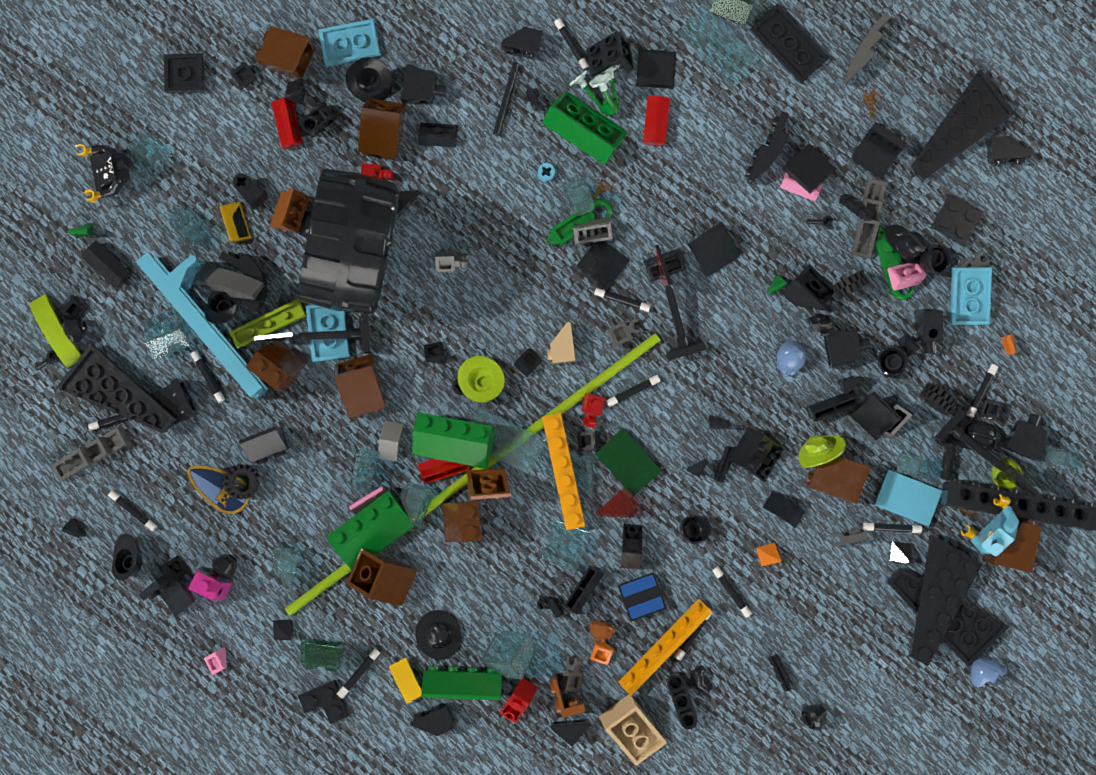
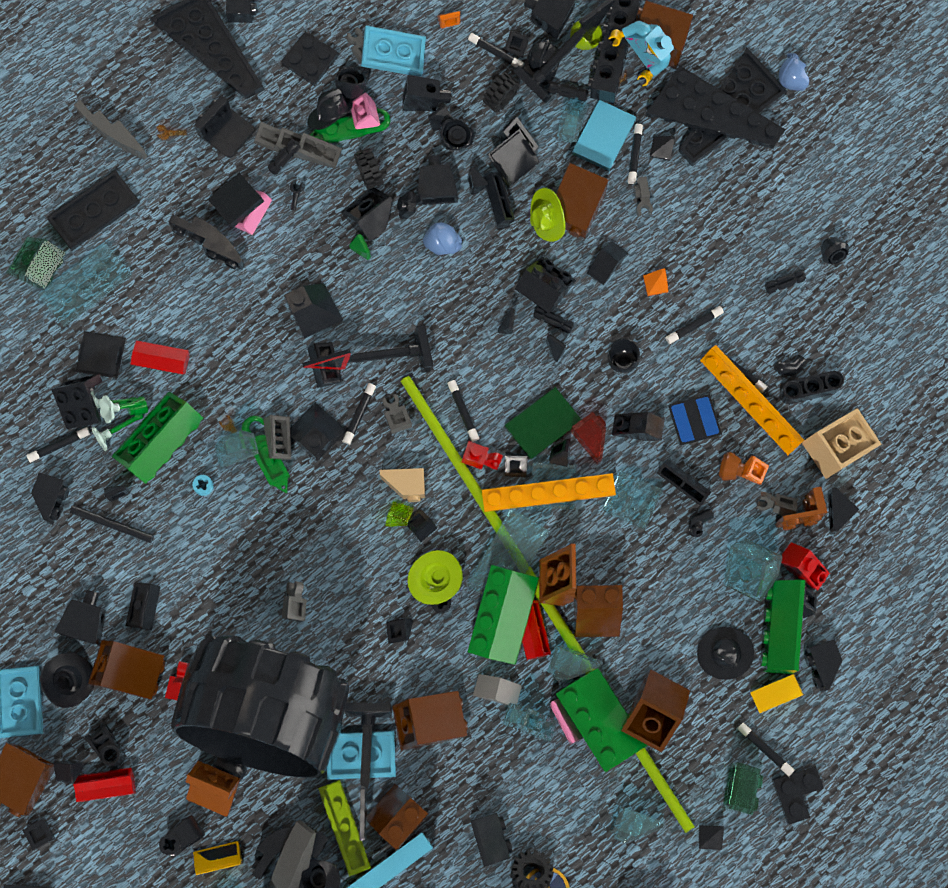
camera: 90 degrees left, 10 degrees down
(487, 705) = (810, 603): none -> black slope
(535, 343) = (398, 515): none -> clear neon green slope
(600, 479) = (560, 453): none -> black slope

